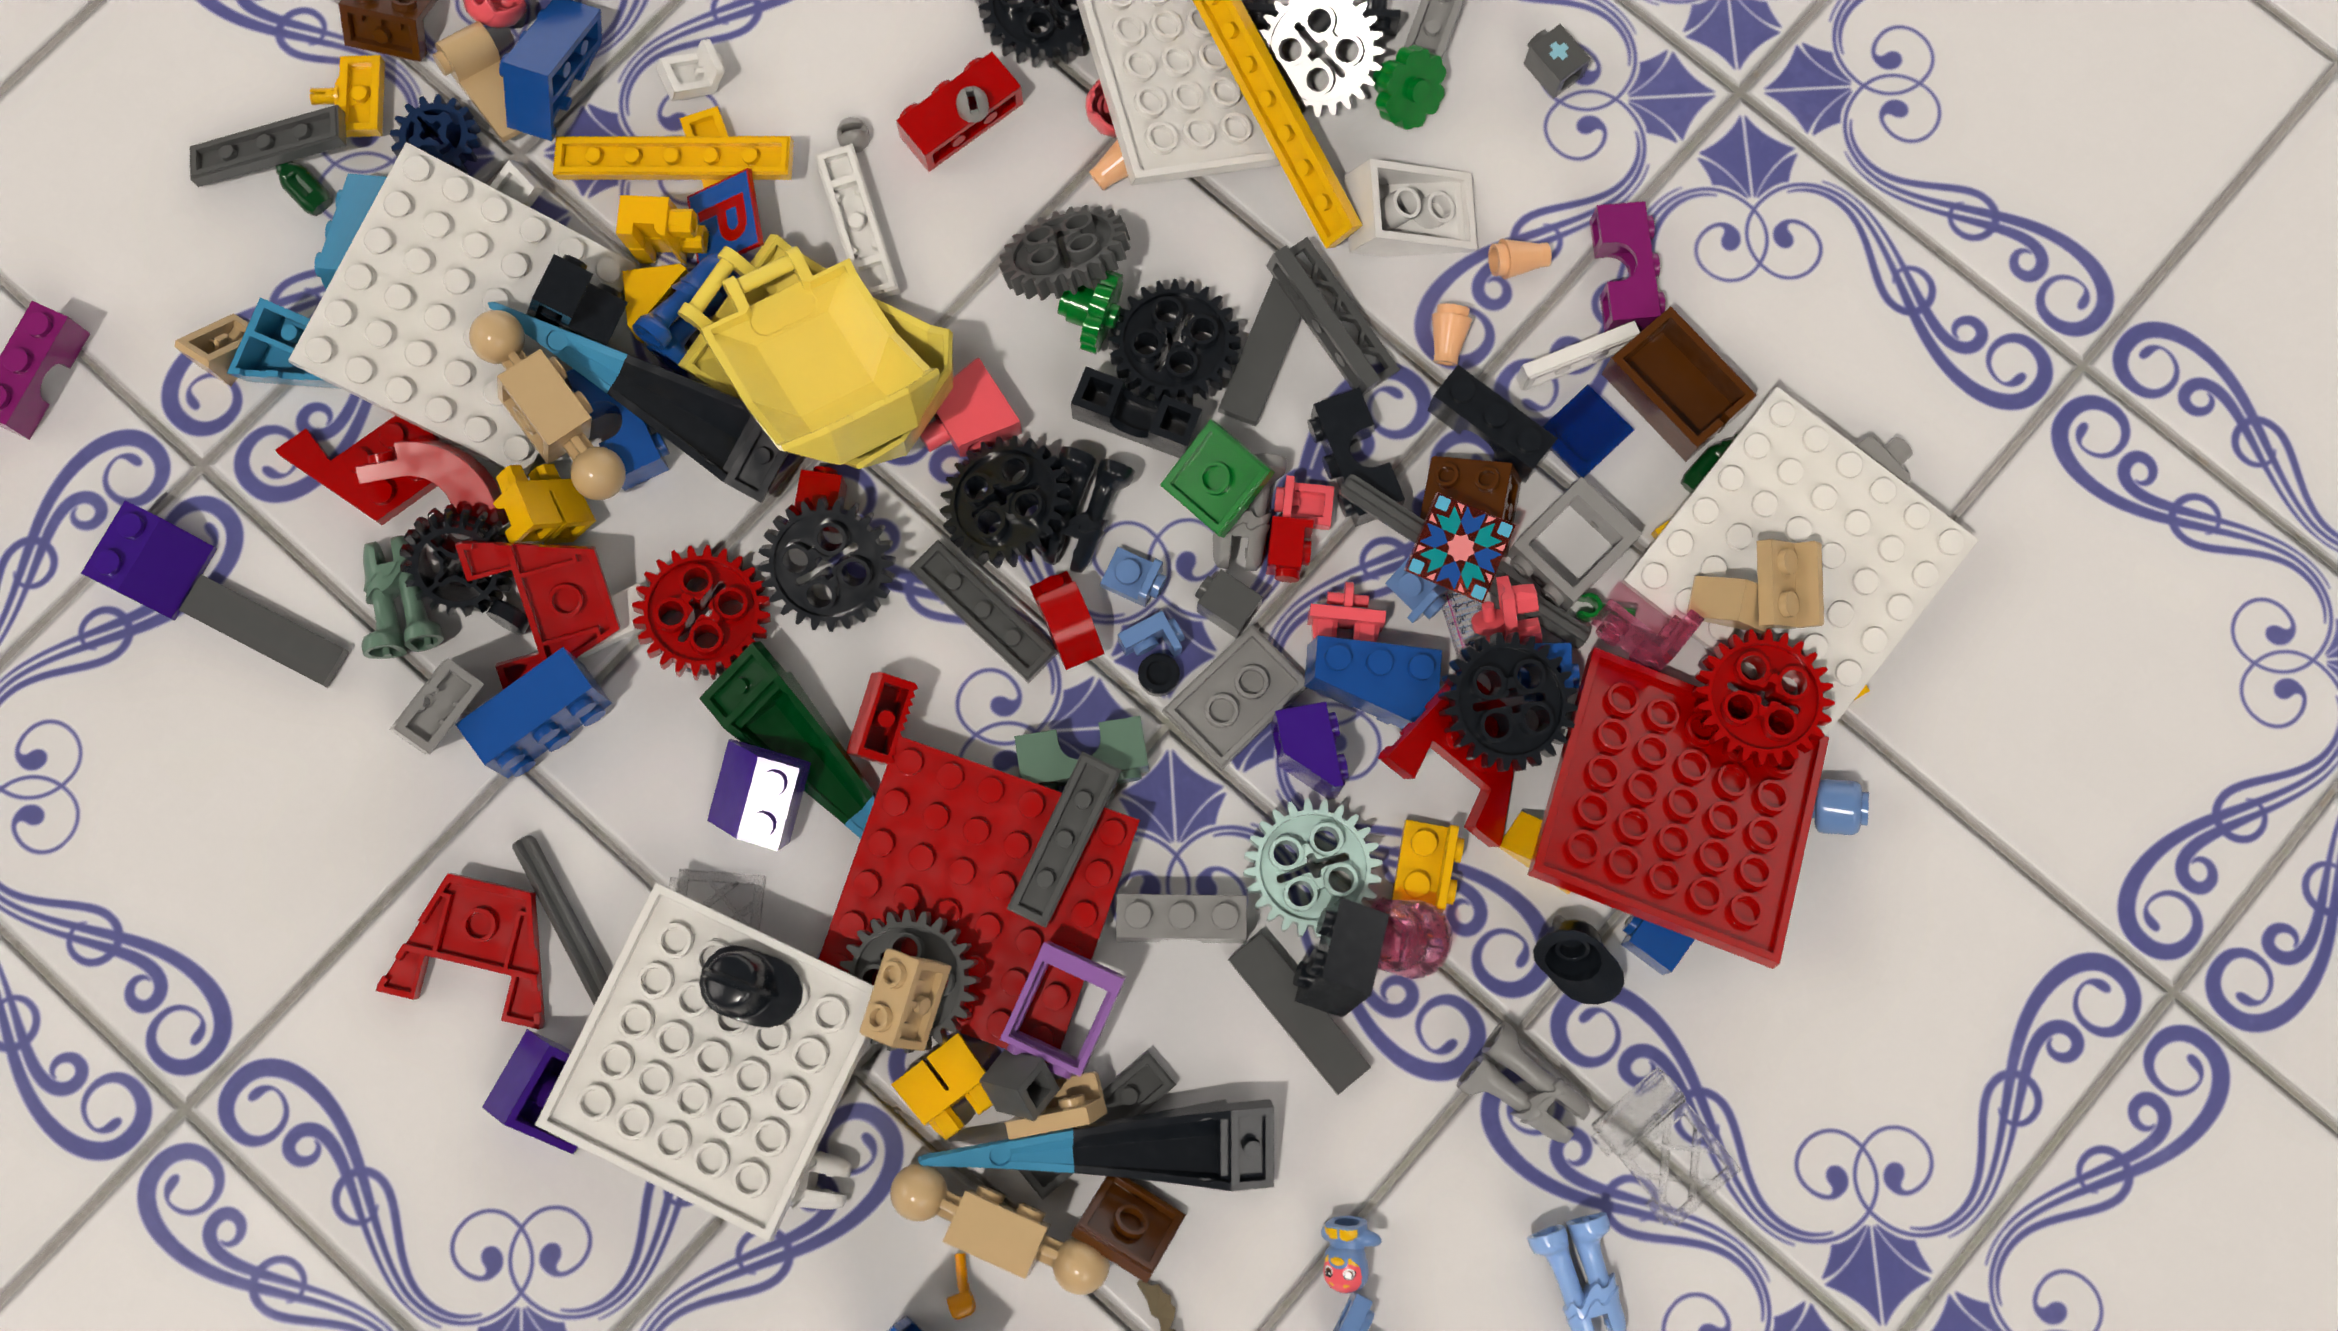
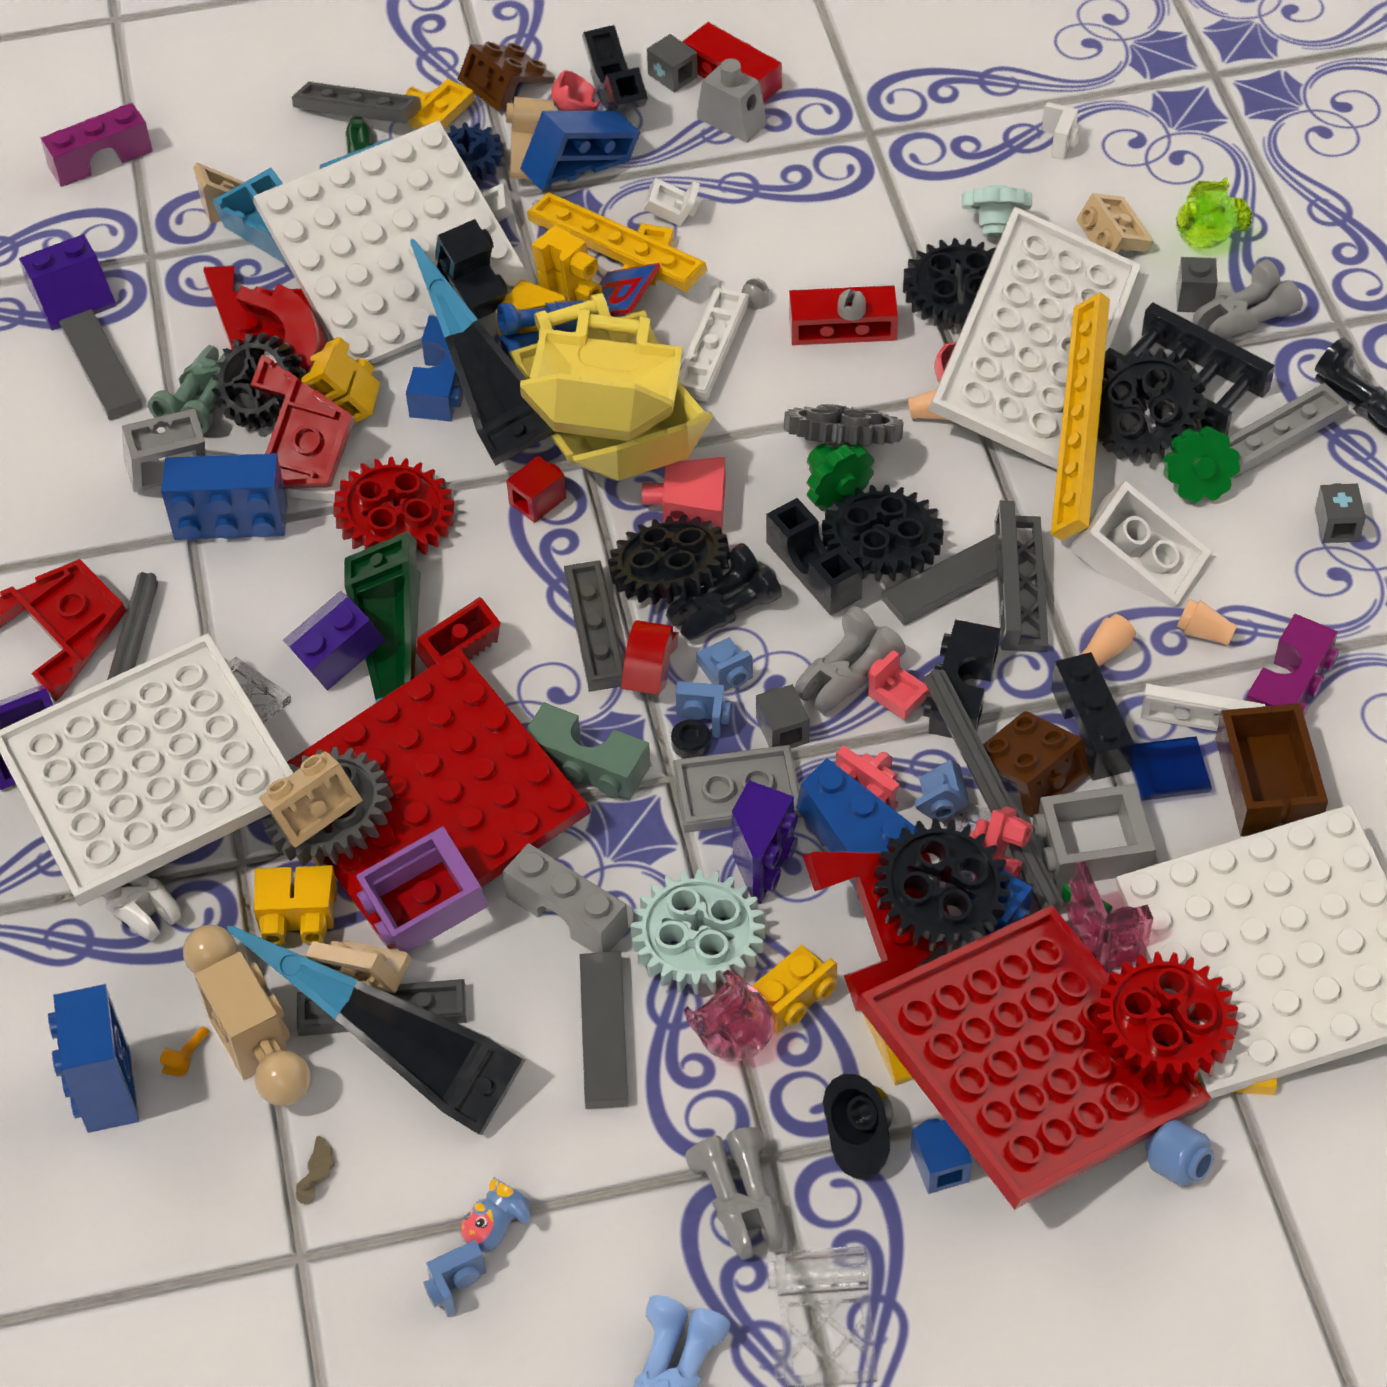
camera: 40 degrees right, 25 degrees down
(508, 617) = (260, 436): black tile -> none
(545, 405) = (396, 318): tan brick -> none
(750, 986) = (210, 726): black piece -> none
(805, 533) = (506, 491): black gear -> none
(1019, 1085) = (344, 919): dark grey brick -> none
(1064, 839) = (519, 779): dark grey tile -> none
(1128, 1226) = (343, 1078): reddish brown tile -> none
(1217, 478) = (838, 622): green tile -> none
(1288, 548) = (860, 707): red brick -> none
(1346, 961) = (661, 989): black brick -> none
(1459, 547) = (990, 766): tile -> none
(1727, 602) = (1196, 932): tan slope -> none
(1790, 584) = (1247, 940): tan bracket -> none

